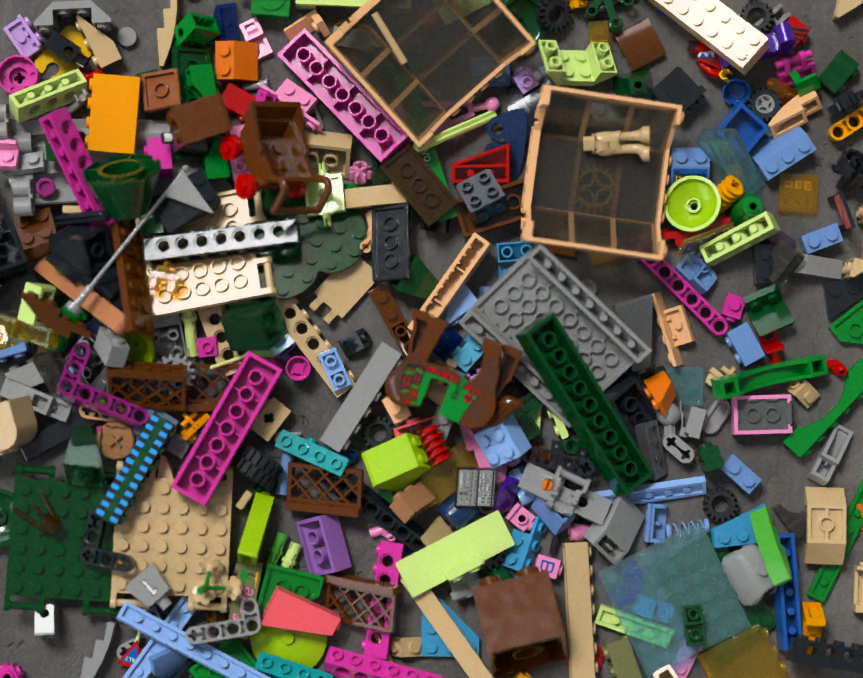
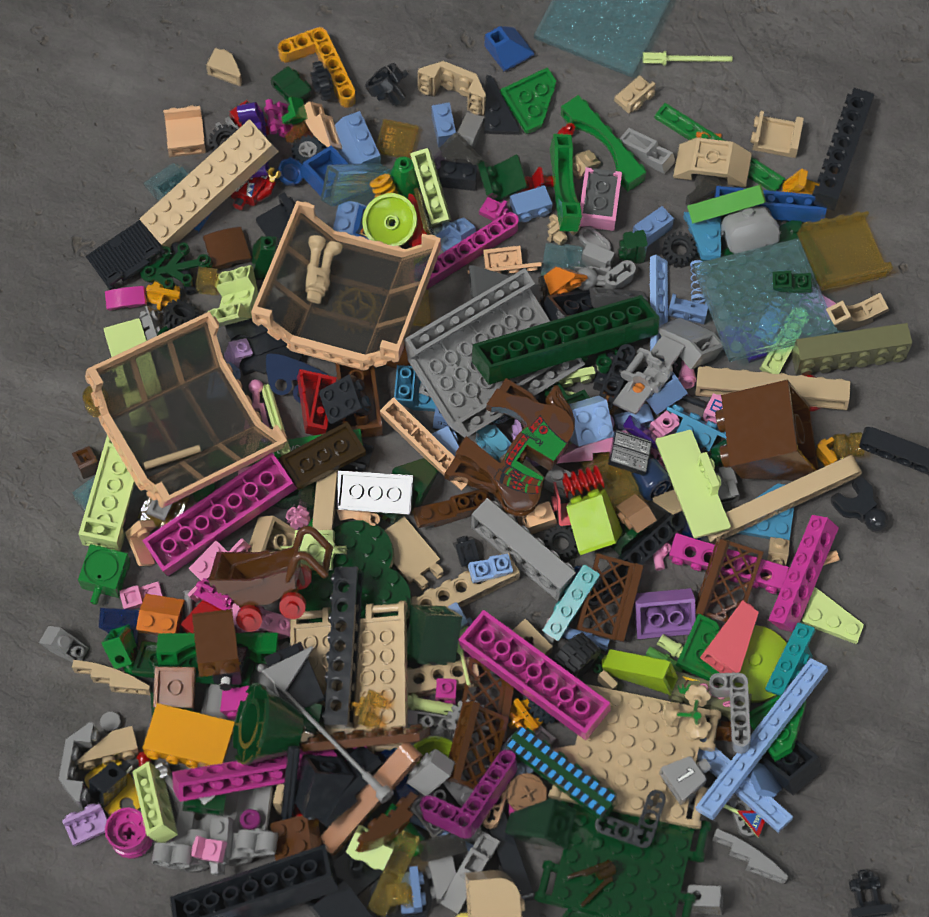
camera: 80 degrees left, 20 degrees down
(298, 368) = (482, 601): dark pink wheel -> none
(844, 211) = (421, 95): black flag -> none

